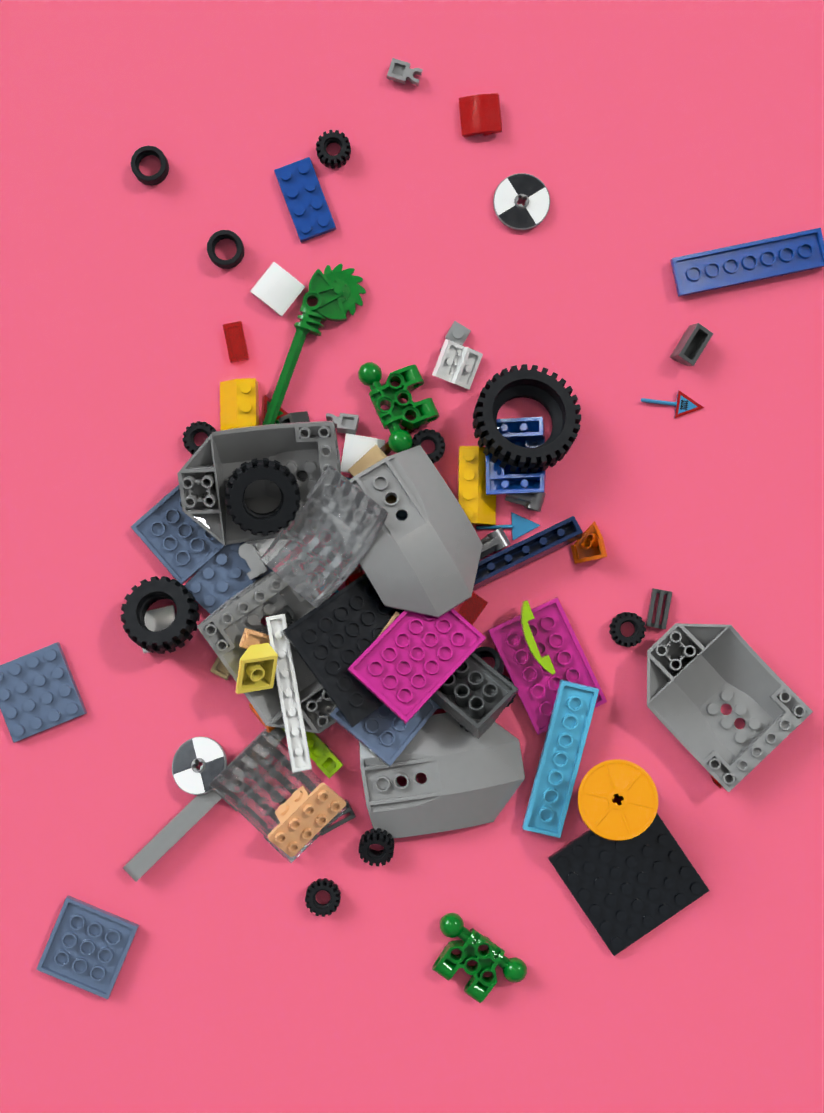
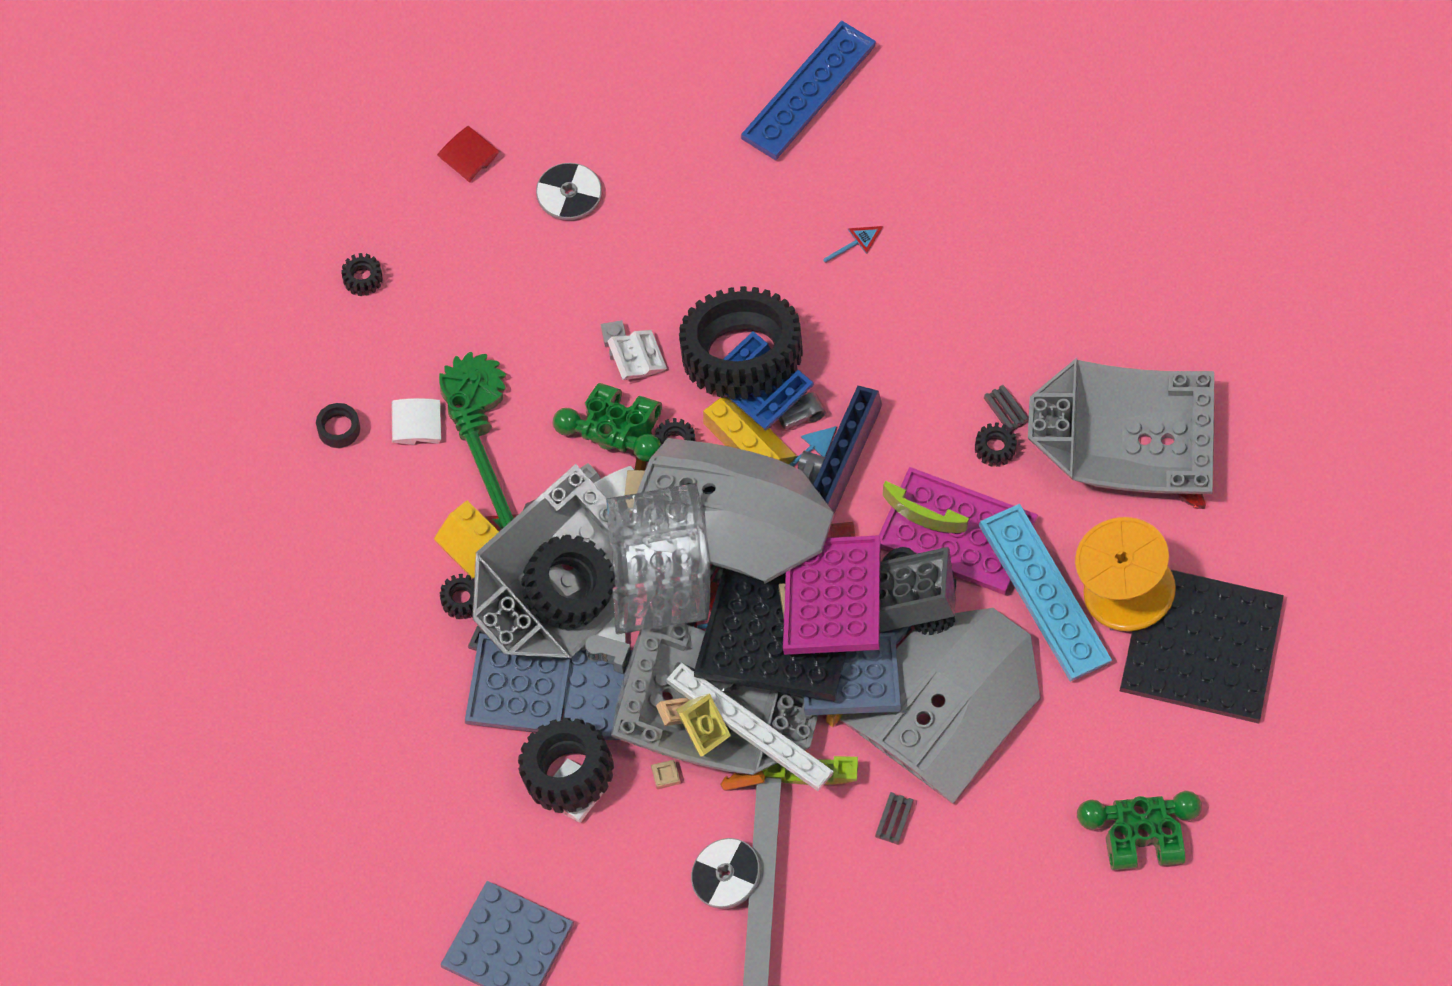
camera: 40 degrees left, 25 degrees down
(147, 151) = (197, 398): black tyre -> none
(236, 341) = (417, 493): clear red tile -> none
(262, 782) = (825, 835): clear slope -> none
(304, 817) = (867, 827): light nougat bracket -> none
(305, 199) = (373, 333): blue plate -> none
(323, 909) = (962, 884): black tyre -> none
(374, 856) = (970, 810): black tyre -> none
(401, 71) = (367, 172): light grey plate -> none
(590, 546) = (898, 404): orange slope -> none
(691, 344) = (824, 184): dark grey brick -> none

